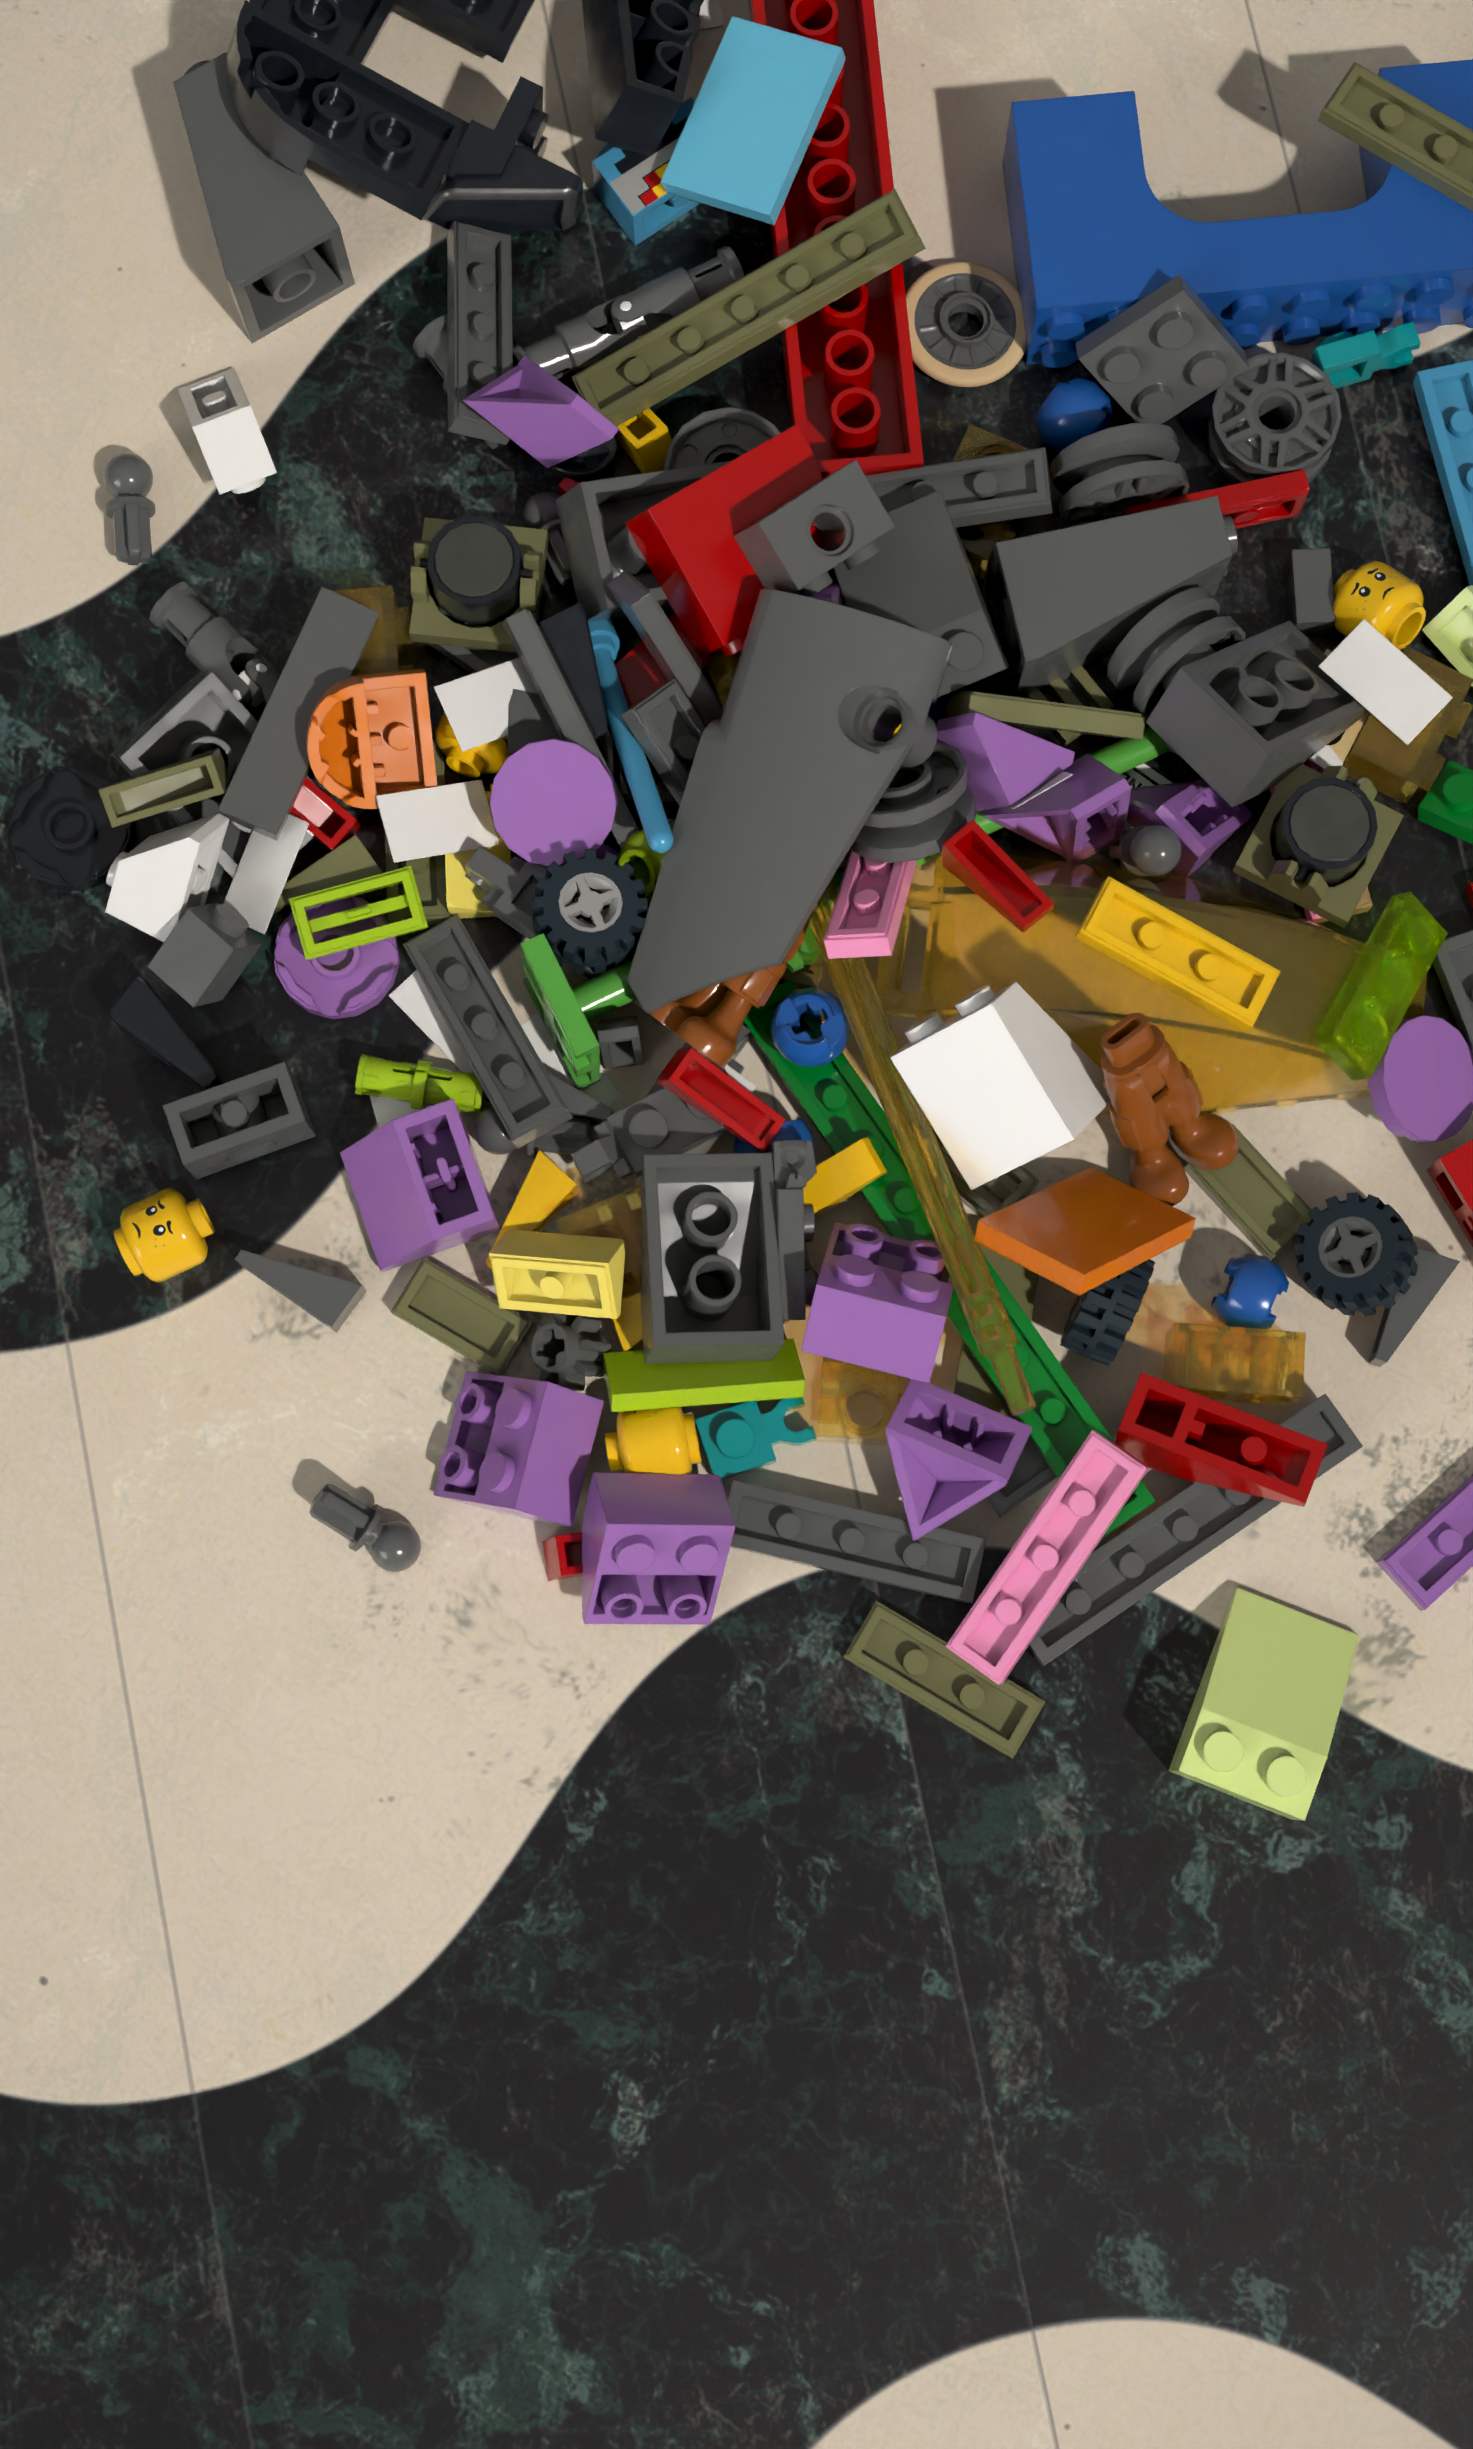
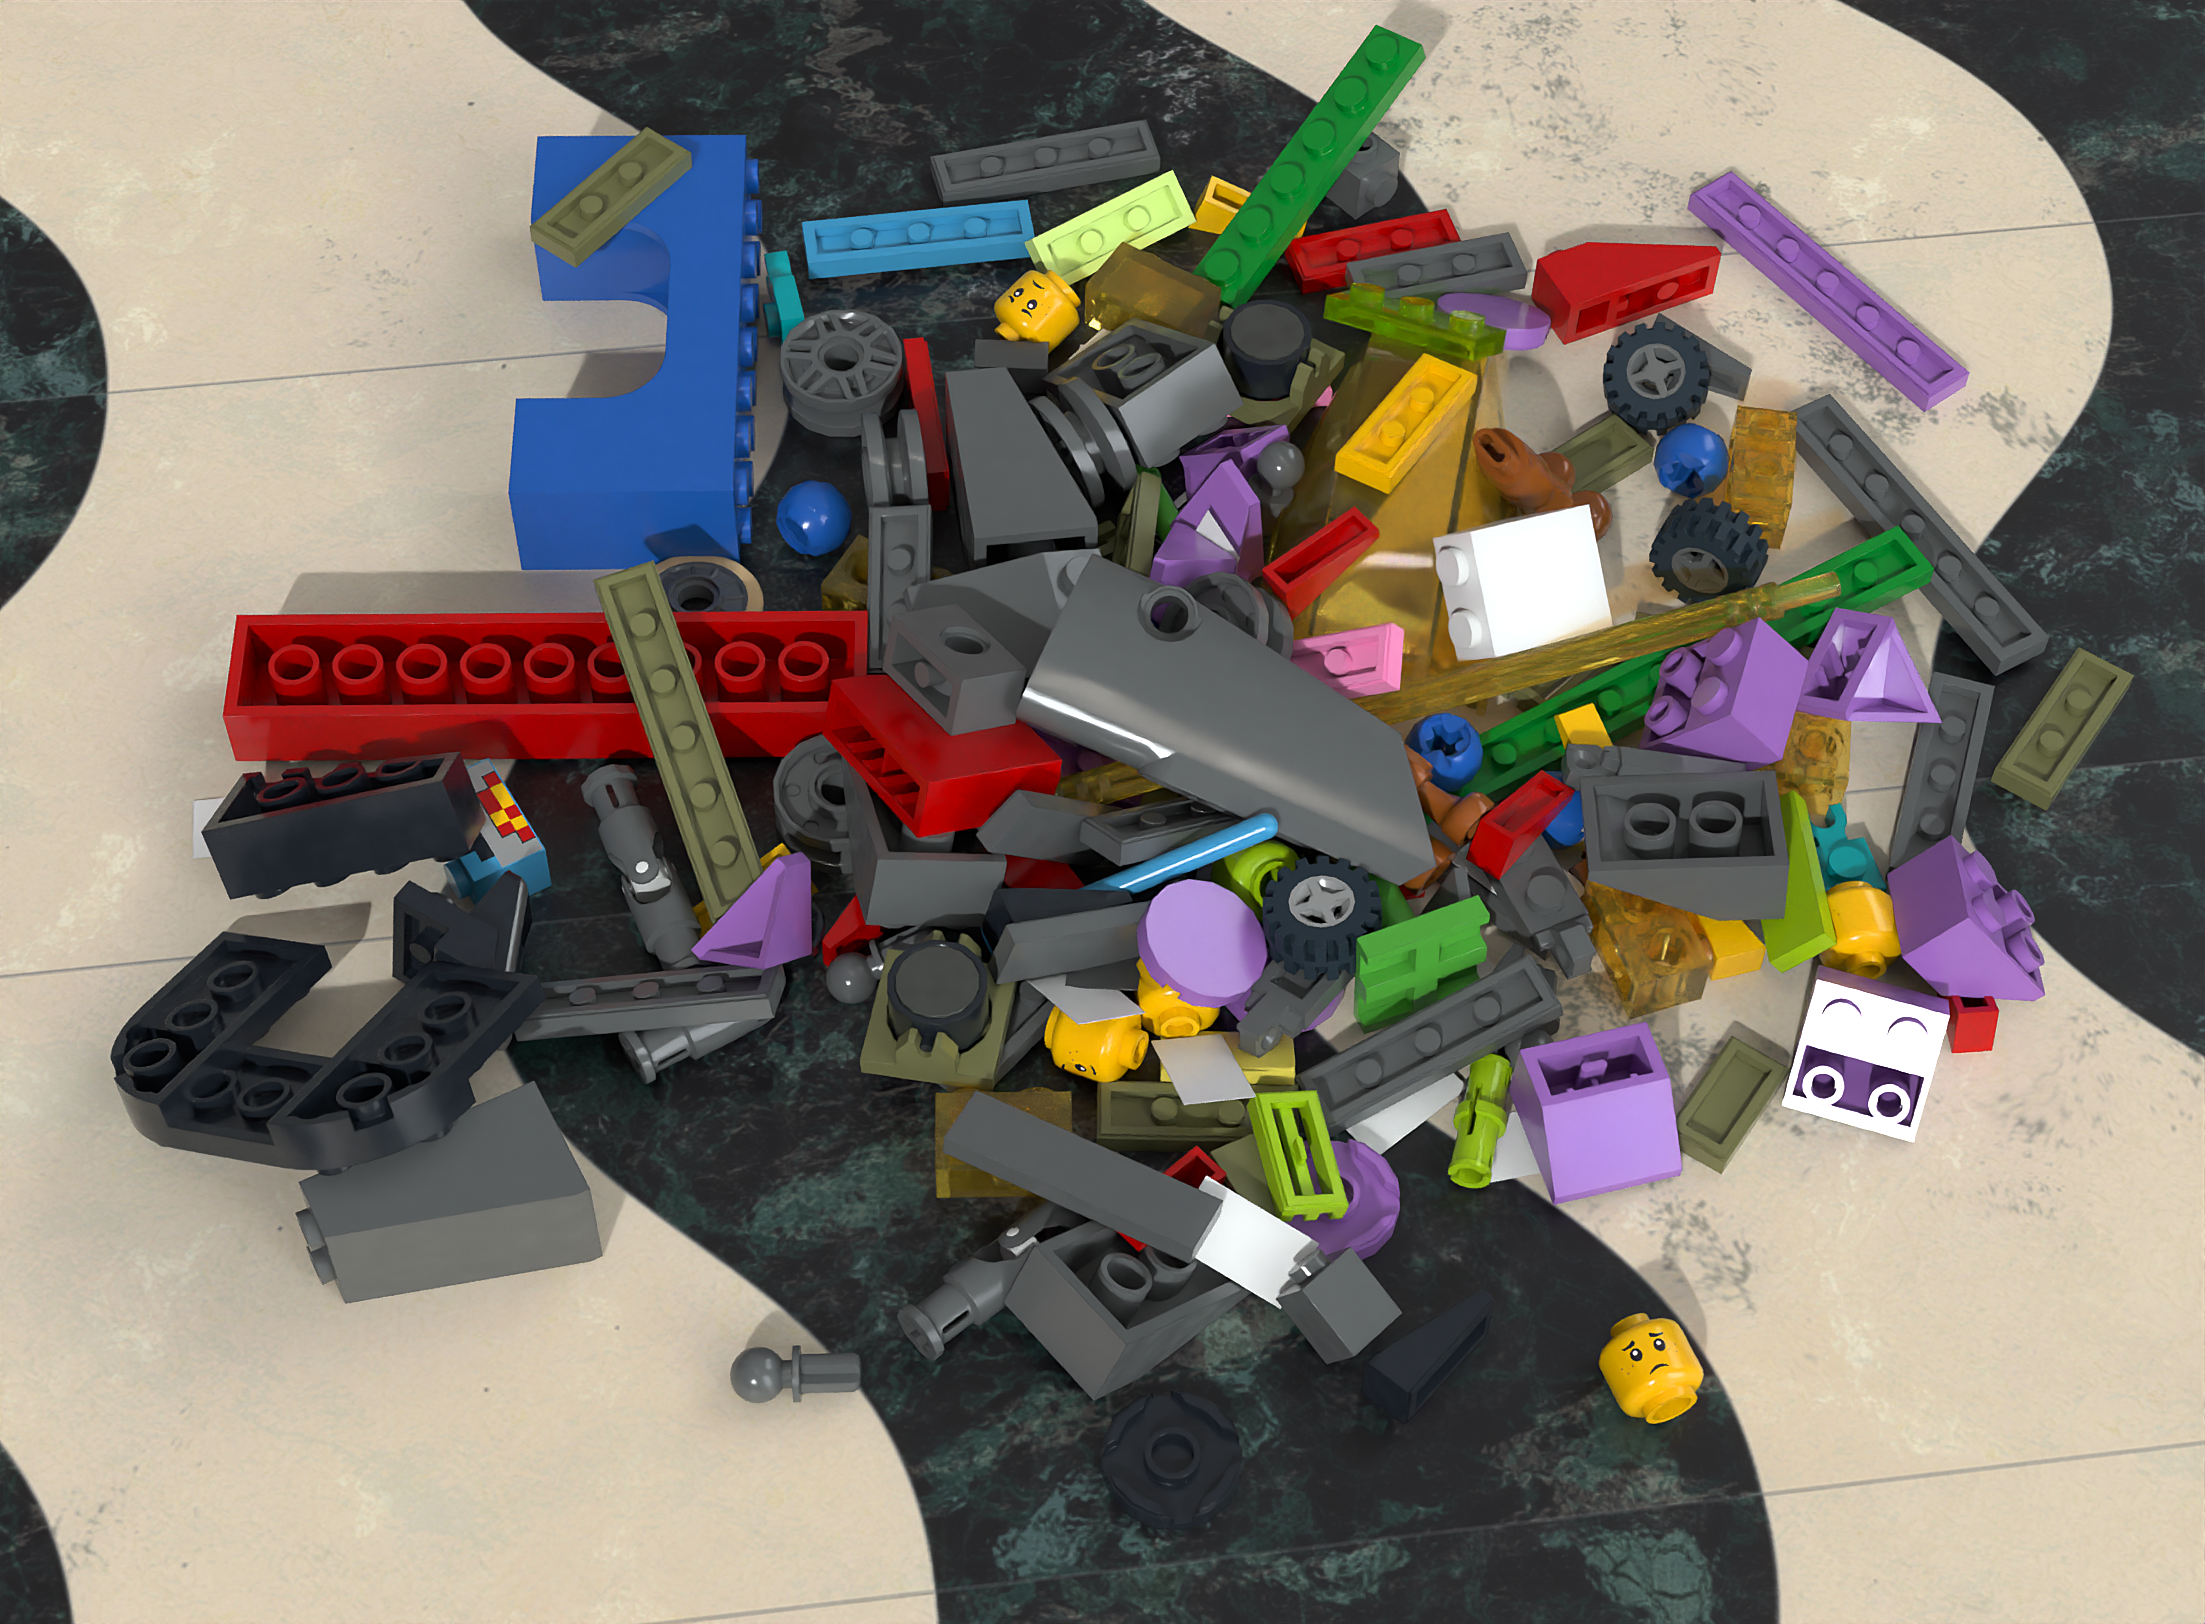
camera: 90 degrees left, 25 degrees down
(166, 788) = (1160, 1299): olive piece -> none
(166, 875) = (1250, 1327): white slope -> none
(227, 432) = (717, 1264): white slope -> none
(239, 1120) = (1529, 1276): dark grey brick -> none
(318, 1294) = (1711, 1229): dark grey piece -> none
(373, 737) = (1115, 1102): orange slope -> none
(391, 1544) = (1956, 1195): dark grey axle -> none
(539, 1199) = (1598, 1010): yellow piece -> none
(559, 1273) = (1695, 979): light yellow slope -> none
(569, 1350) = (1776, 1008): dark grey gear -> none
(753, 120) = (468, 700): medium azure tile -> none
(1047, 1557) = (1956, 611): bright pink tile -> none
(1084, 1230) = (1660, 539): orange tile -> none
(1162, 353) = (780, 420): dark grey plate -> none
(1217, 1443) = (1841, 479): red slope -> none
(1267, 1705) = (2070, 486): yellowish green slope -> none
(1385, 682) = (1120, 300): white sticker -> none

